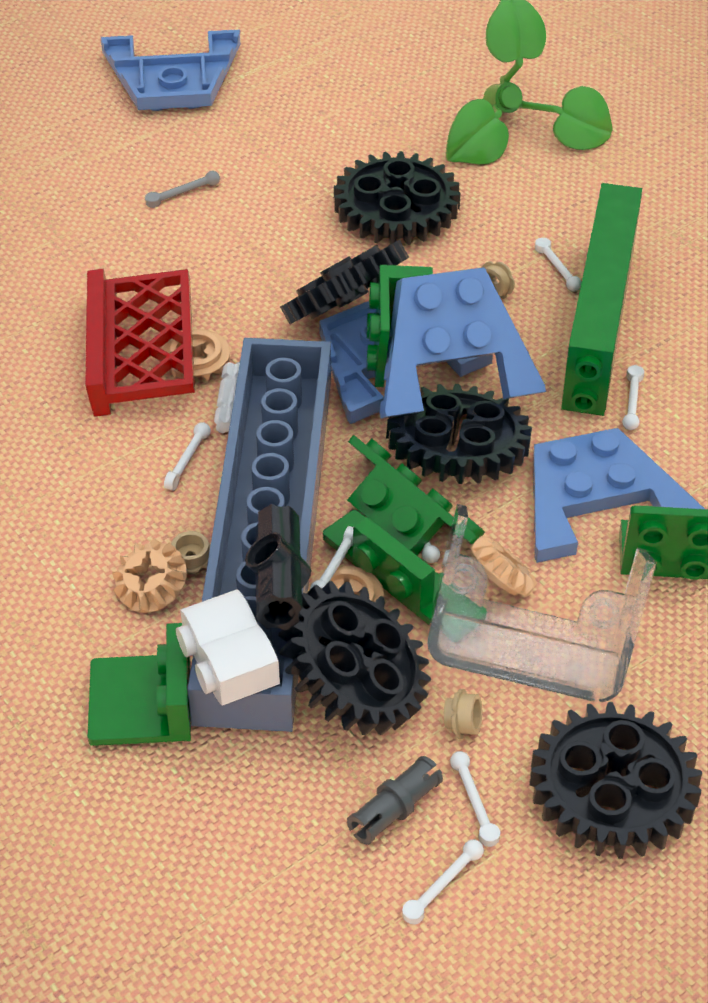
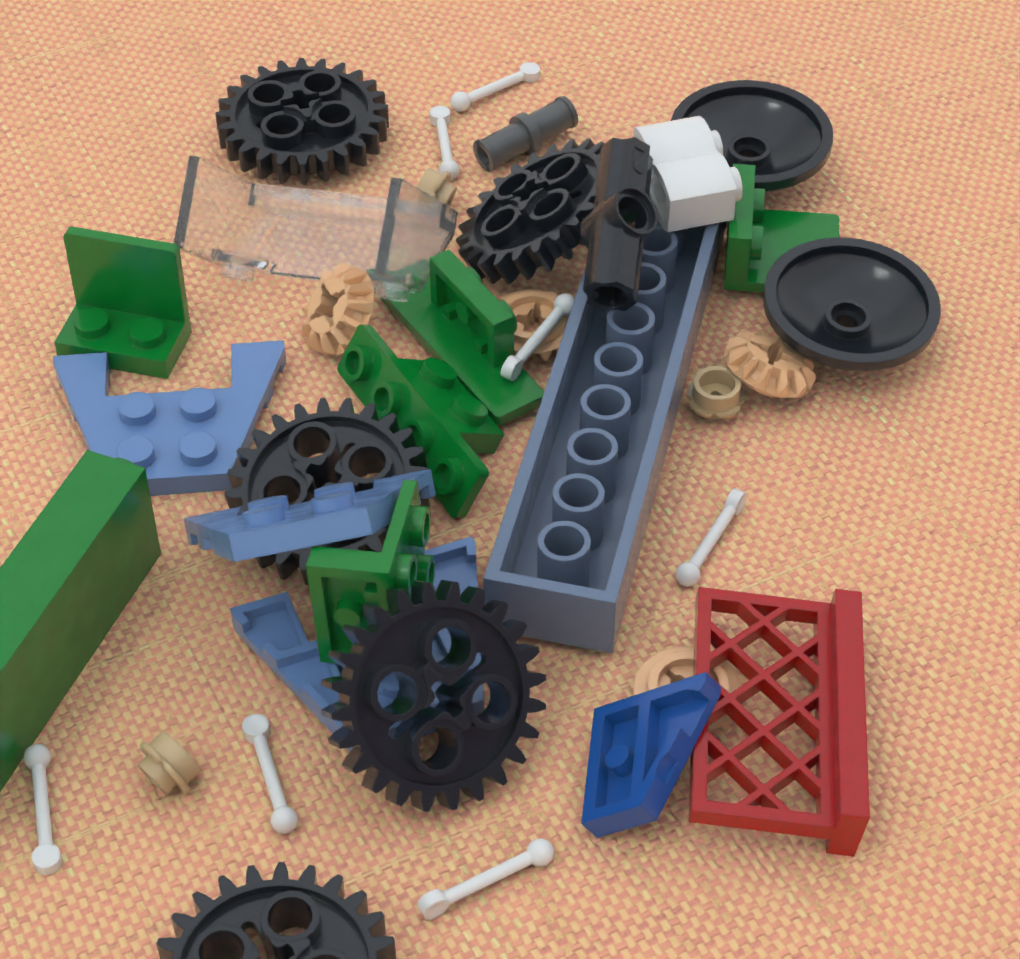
camera: 170 degrees left, 0 degrees up
(81, 610) = (851, 304): none -> black dish
(169, 765) = (764, 127): none -> black dish
(221, 304) = (641, 751): none -> blue wing
(226, 397) = (640, 612): white axle -> none
(325, 247) = (436, 902): none -> white hinge

